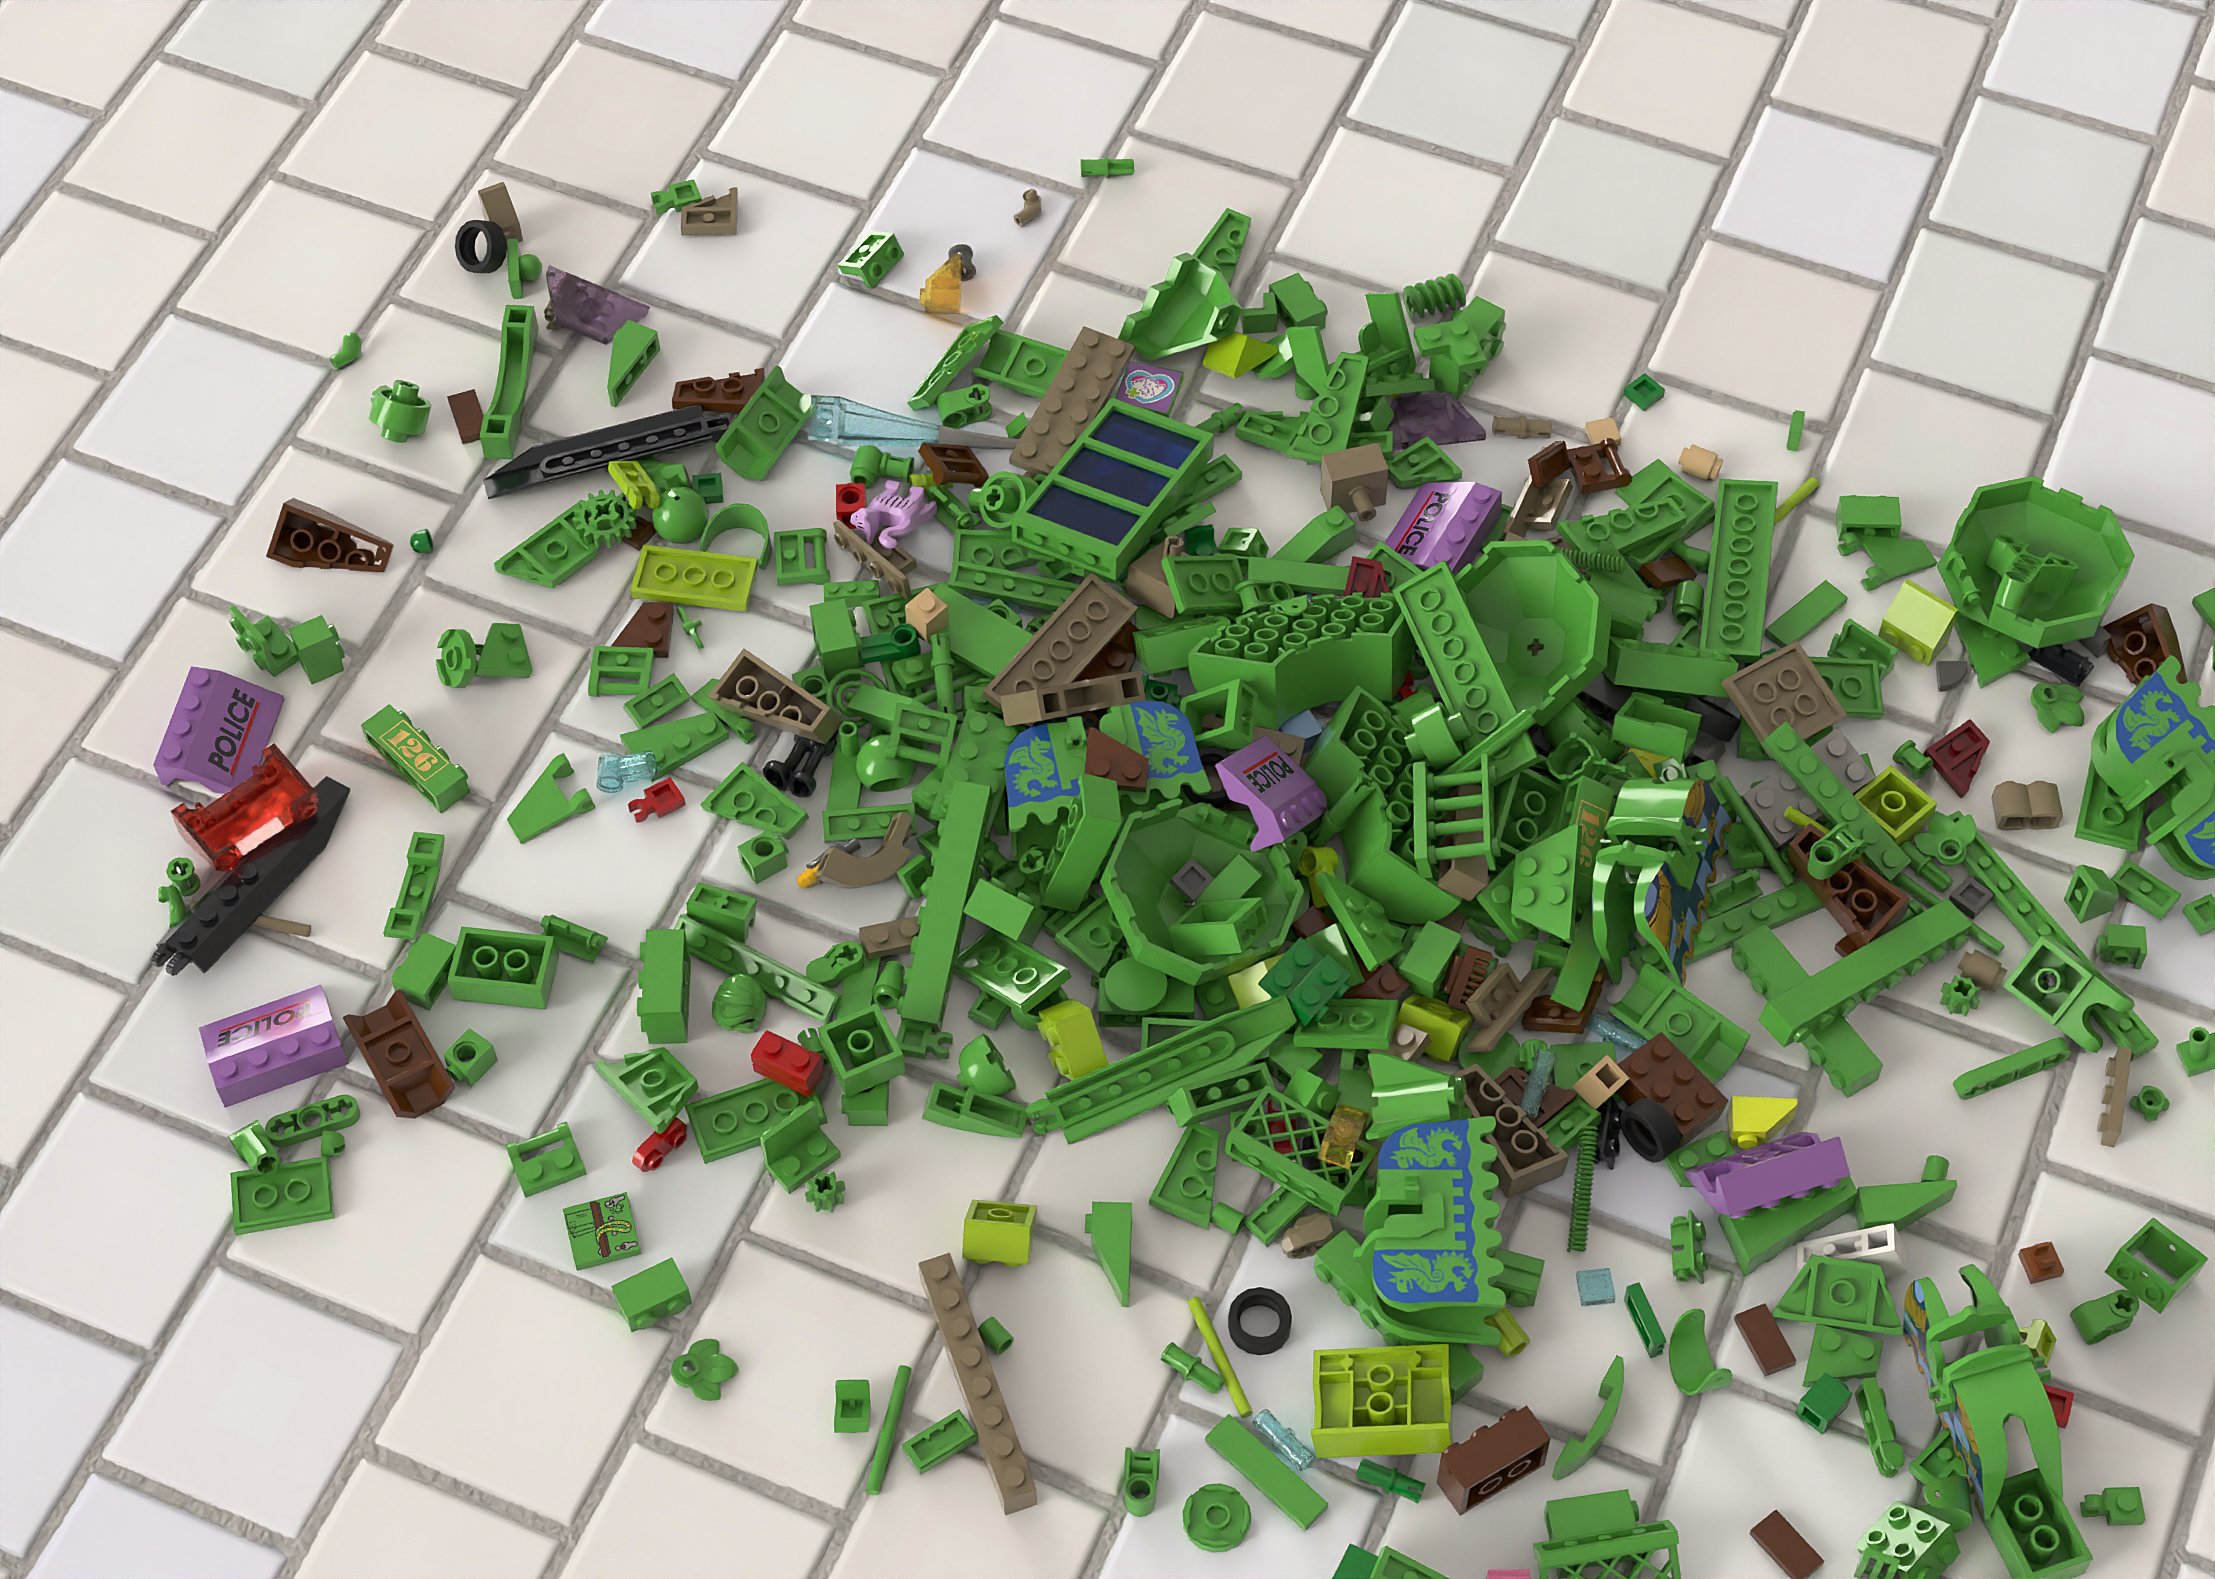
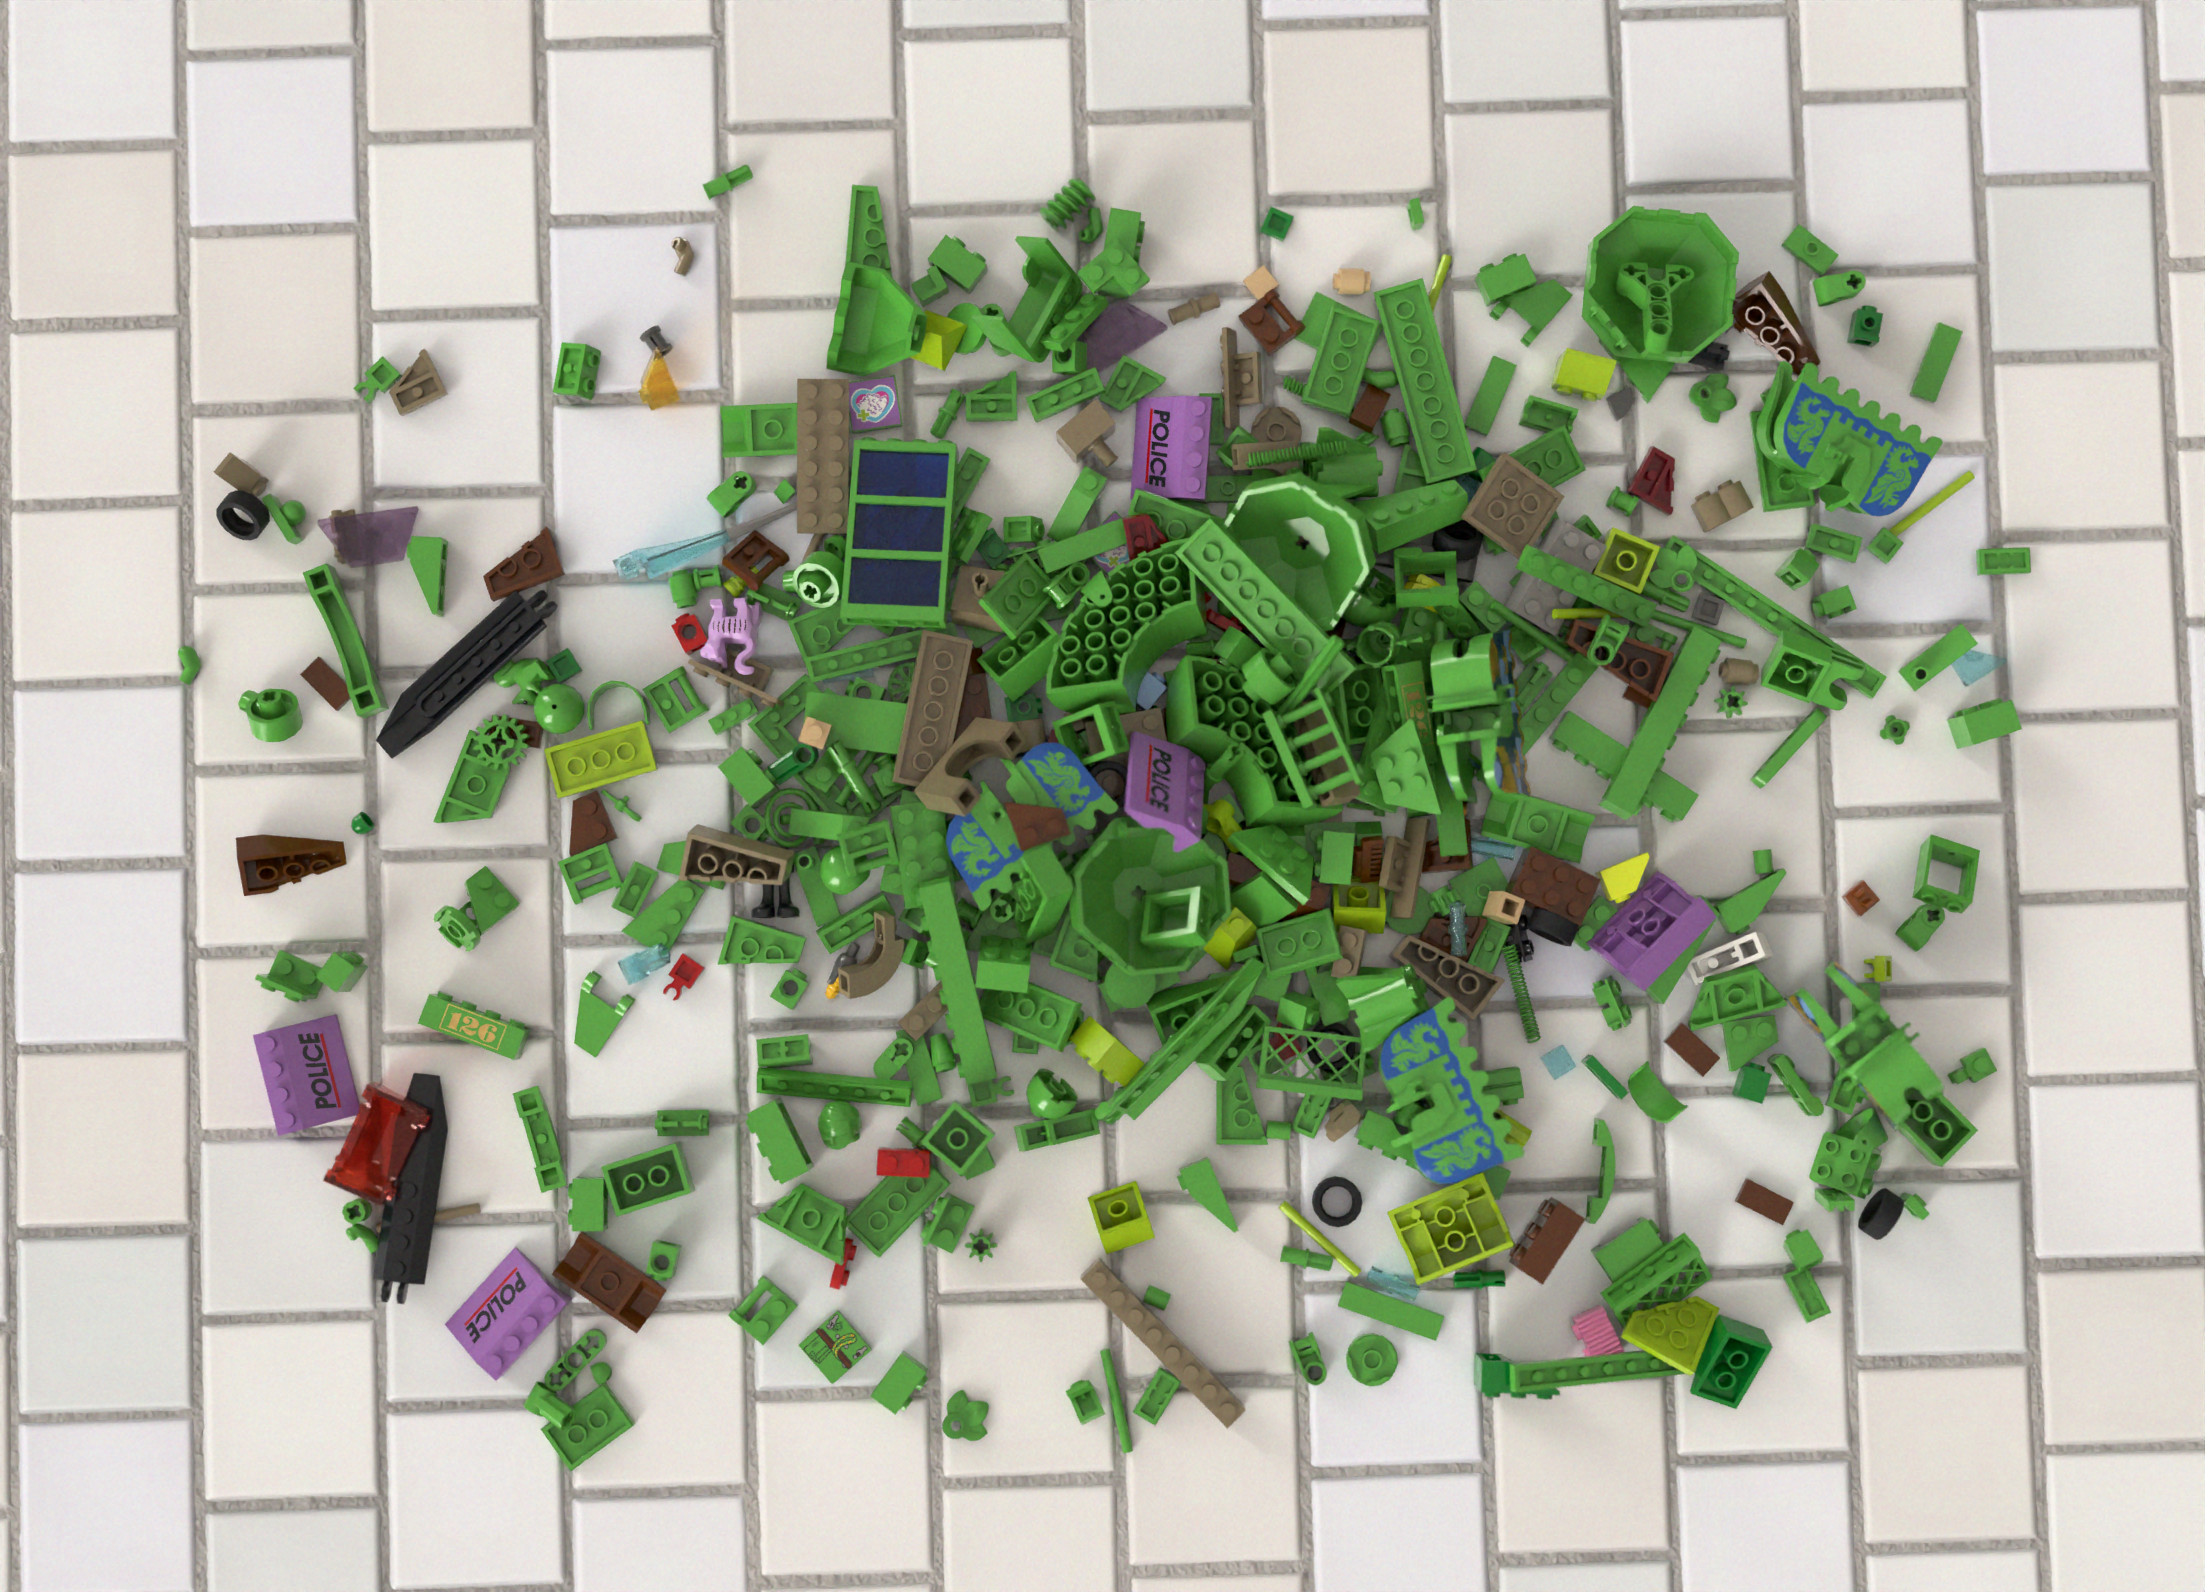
camera: 30 degrees left, 30 degrees up
(634, 483) = (508, 702): lime hinge -> none
(764, 427) = (582, 587): bright green piece -> none
(953, 361) = (702, 450): bright green wing -> none
(1191, 880) = (1134, 882): dark grey plate -> none
(1232, 881) = (1166, 872): bright green slope -> none
(1306, 981) = (1259, 932): green plate -> none
(1333, 412) = (1044, 384): bright green wing -> none
(1343, 1135) = (1341, 1041): clear yellow slope -> none
(1549, 463) = (1234, 343): reddish brown tile -> none
(1623, 528) = (1317, 396): bright green wing -> none
(2061, 1404) = (1907, 1011): red plate -> none
(2114, 1096) = (1869, 738): dark tan plate -> none

